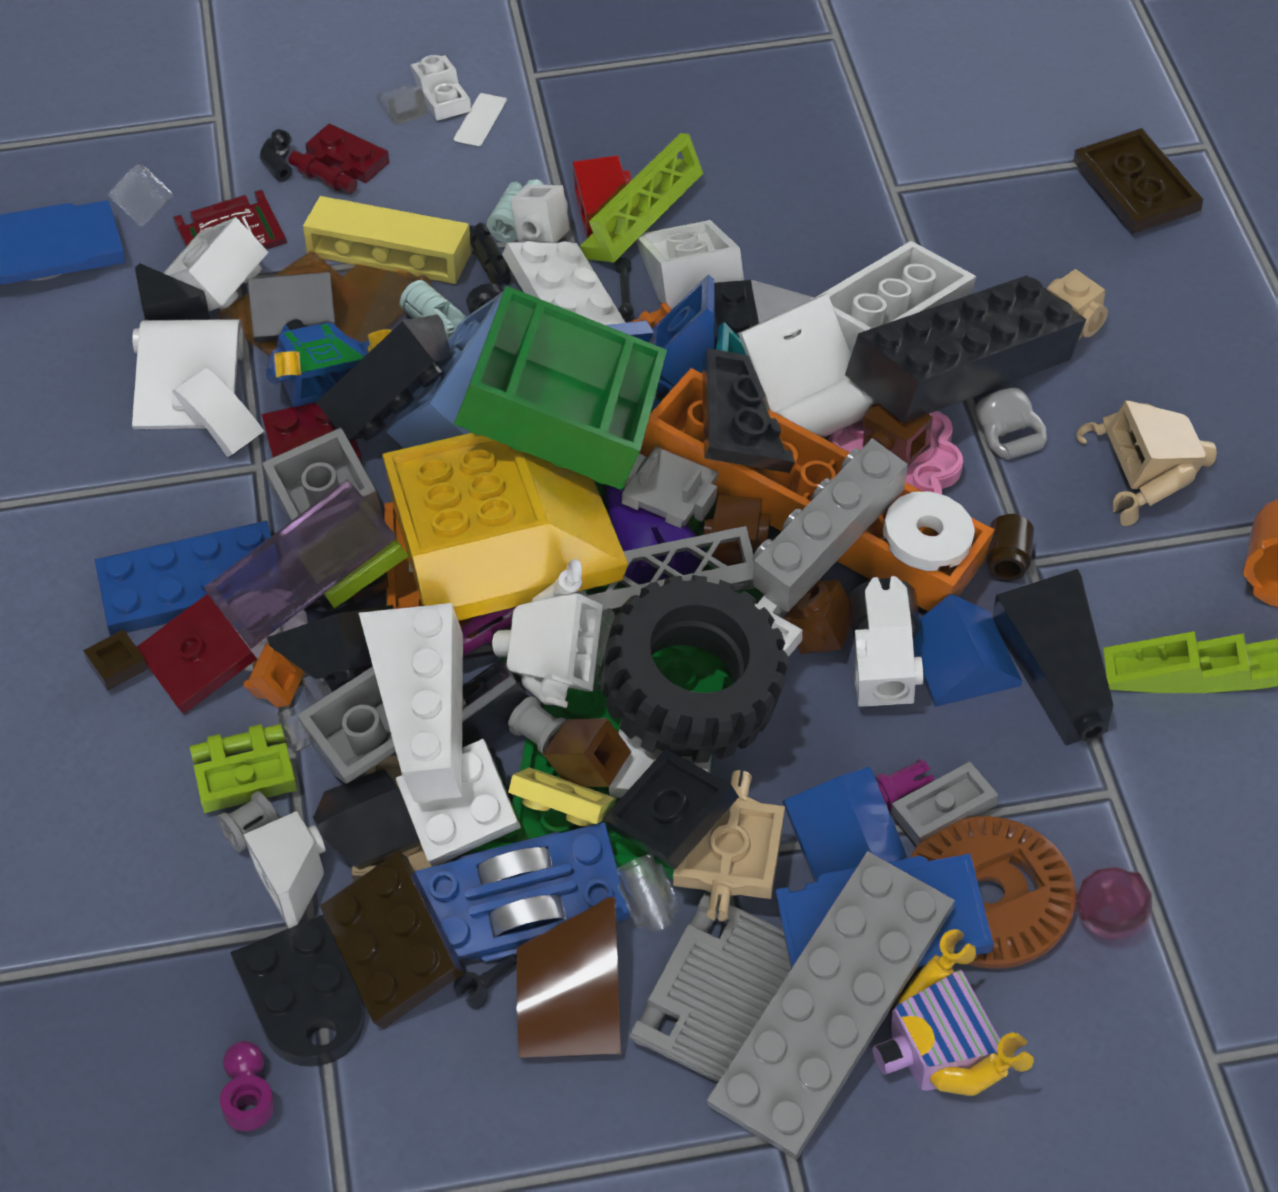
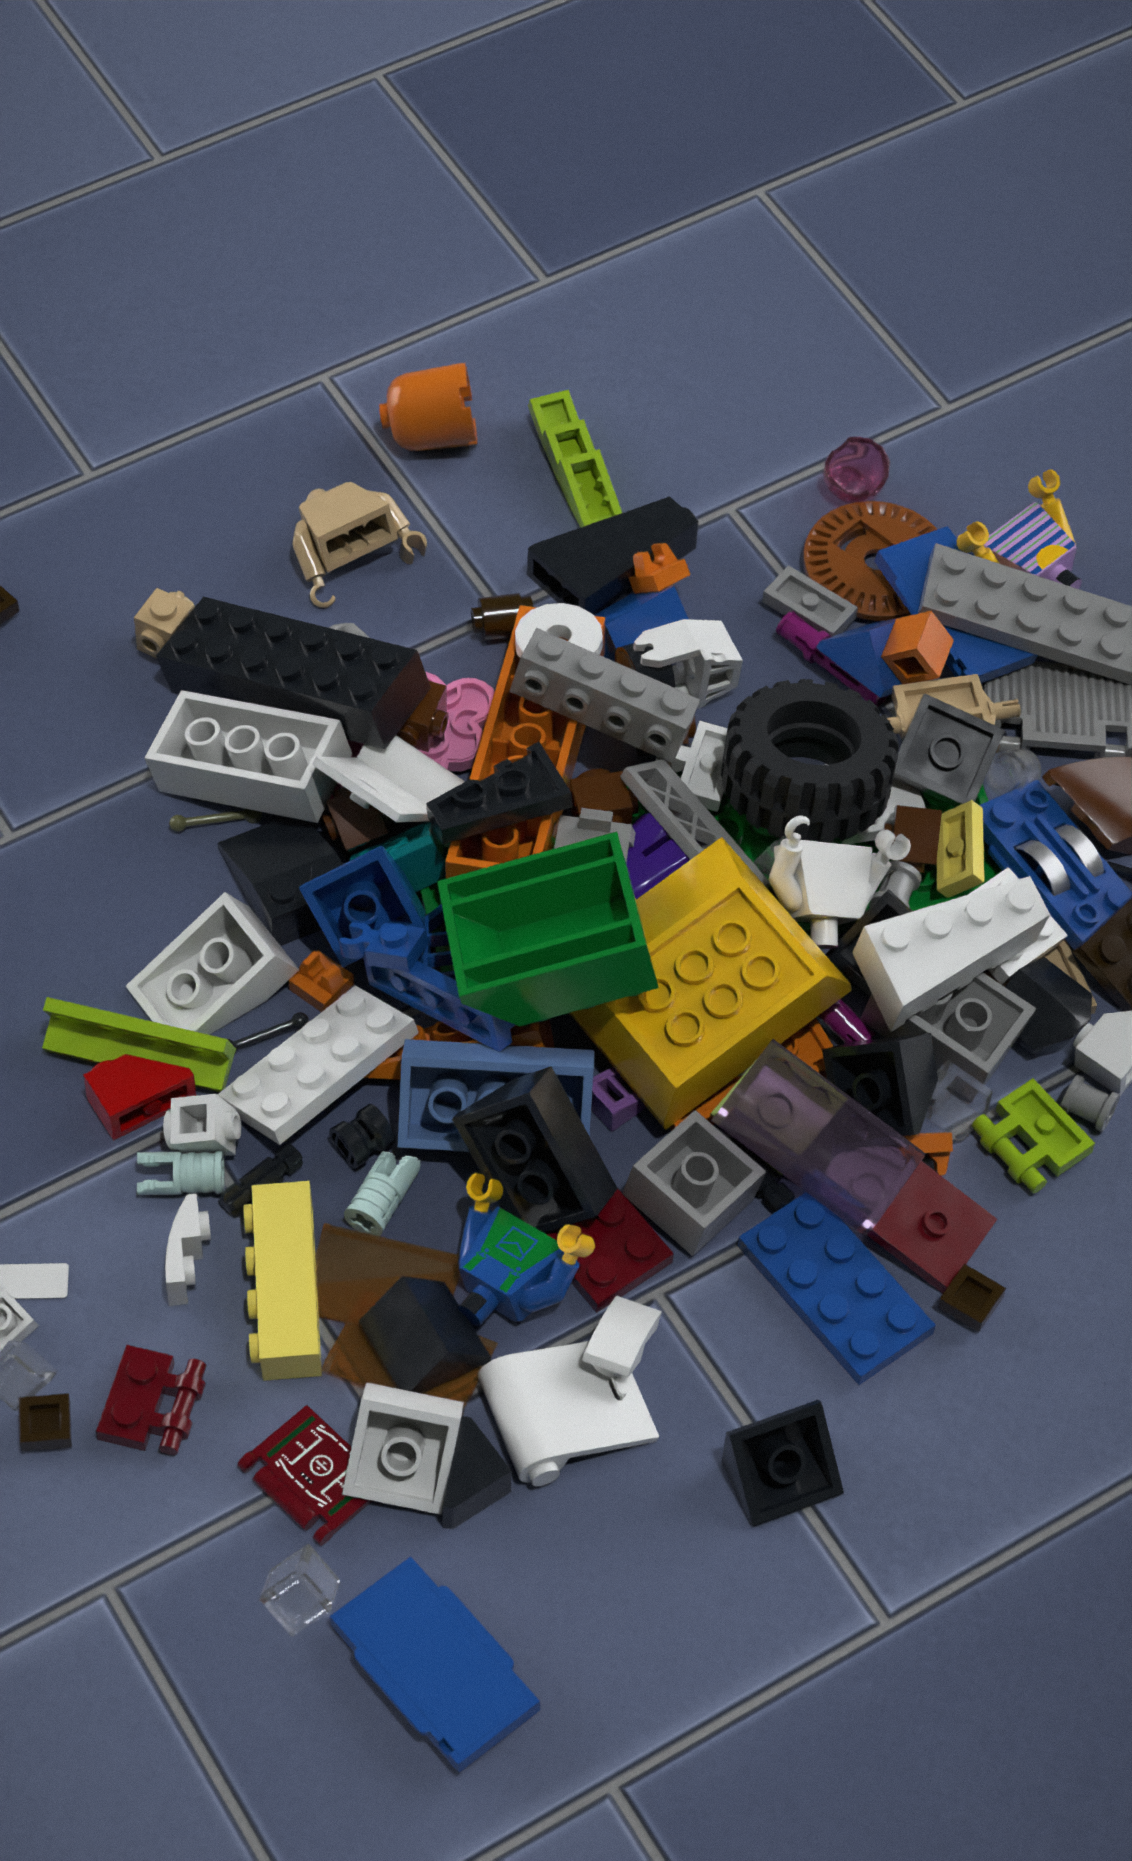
camera: 115 degrees left, 5 degrees up
(54, 482) = (782, 1463): none -> black slope
(274, 154) = (168, 1477): black arm -> none
(351, 100) = (45, 1422): none -> dark brown plate
(442, 187) = (184, 1247): none -> white slope
(635, 322) = (390, 947): none -> blue plate
(819, 836) = (917, 648): none -> orange brick
(1012, 669) = (657, 574): none -> orange tile

